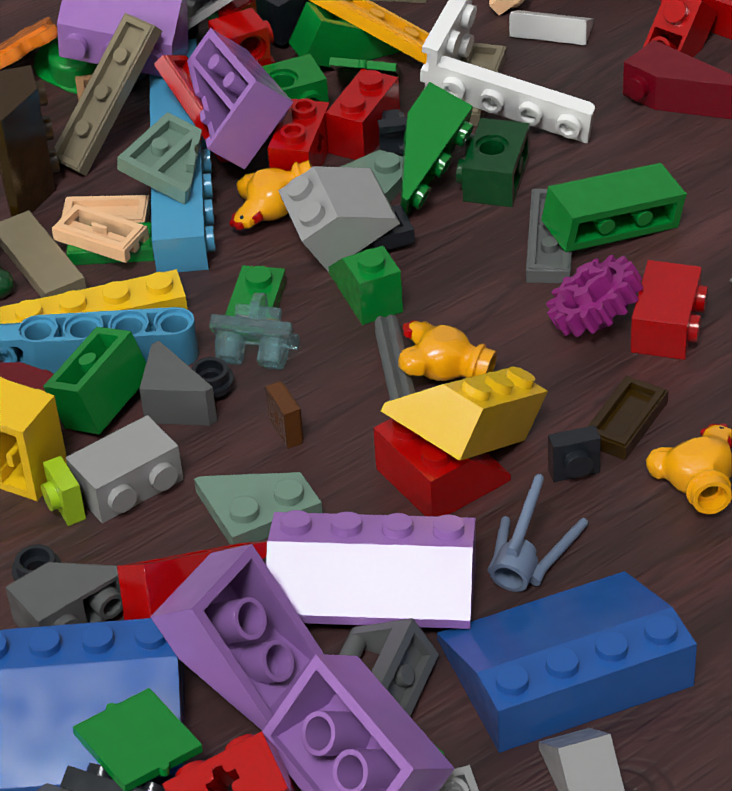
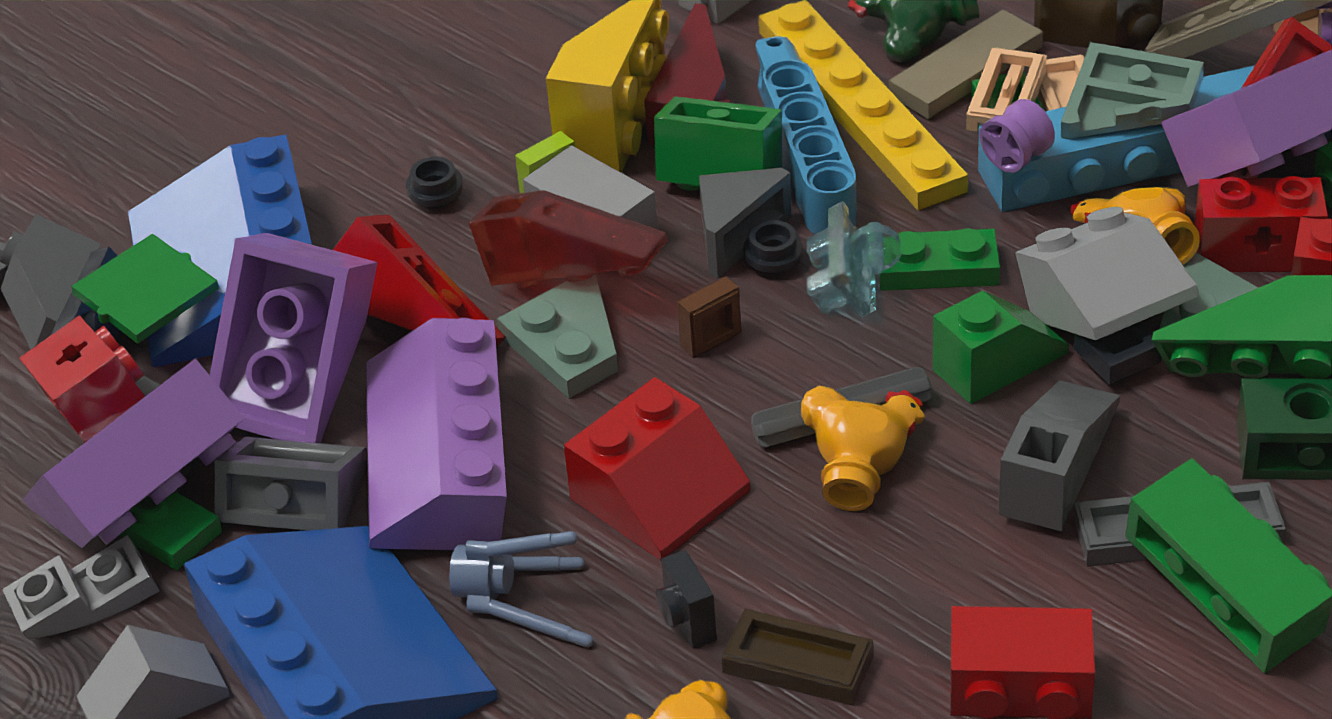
camera: 80 degrees right, 0 degrees up
(65, 595) = (364, 188): dark grey slope -> none
(180, 474) = (551, 236): none -> clear red slope
(195, 211) = (1017, 135): none -> medium lavender wheel
(472, 412) = (696, 459): yellow slope -> none
(487, 261) = (1053, 453): none -> dark grey slope
(594, 295) = (1011, 568): magenta gear -> none

